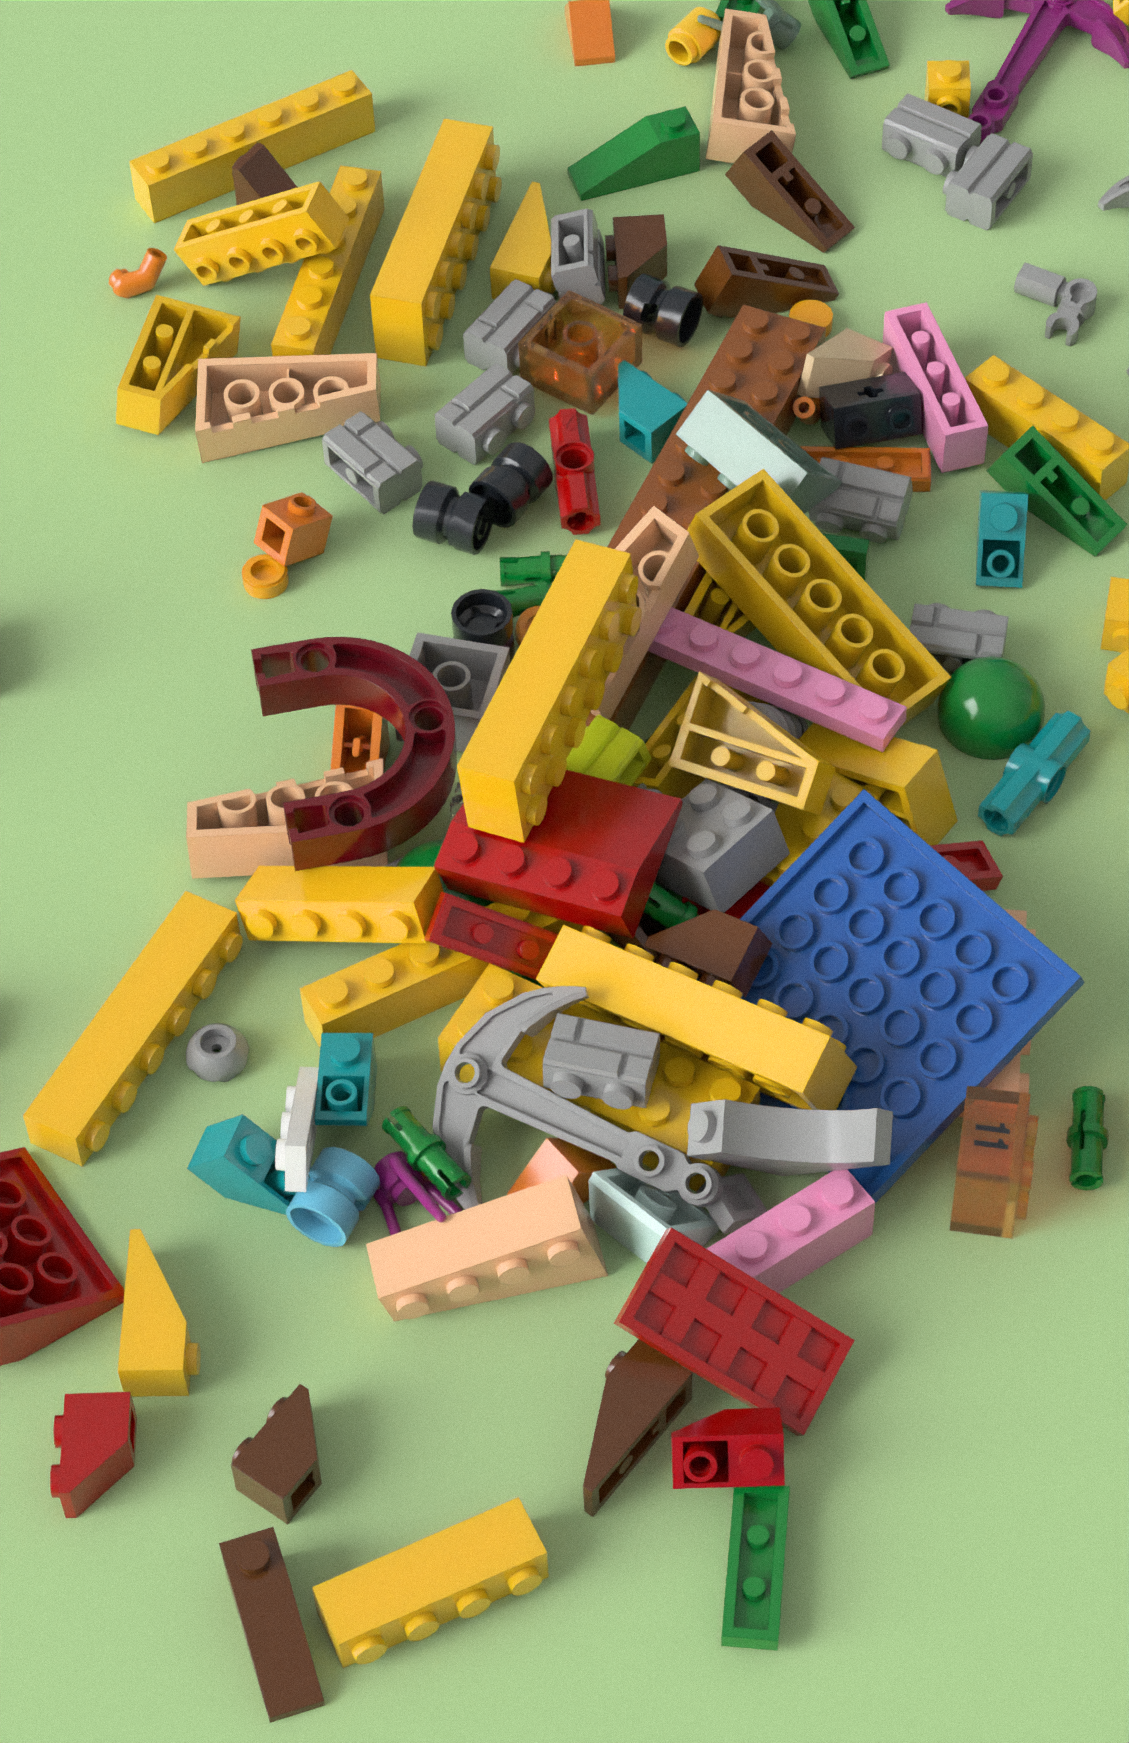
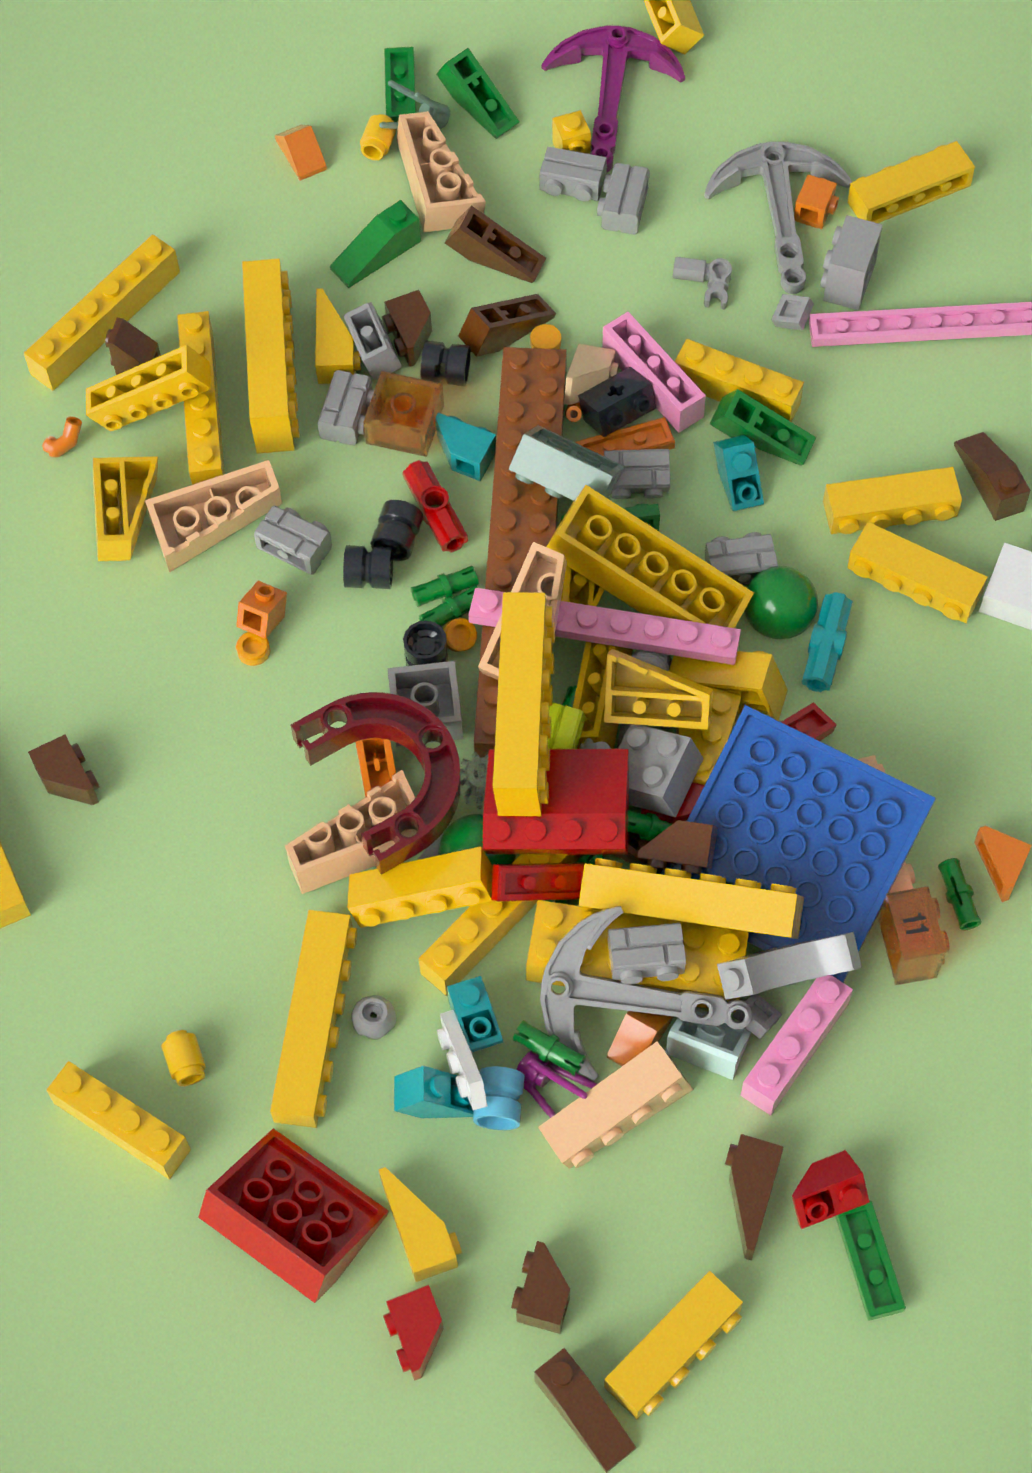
camera: 20 degrees left, 10 degrees up
(485, 414) = (355, 479): light grey brick -> none
(734, 1331) = (800, 1110): red plate -> none

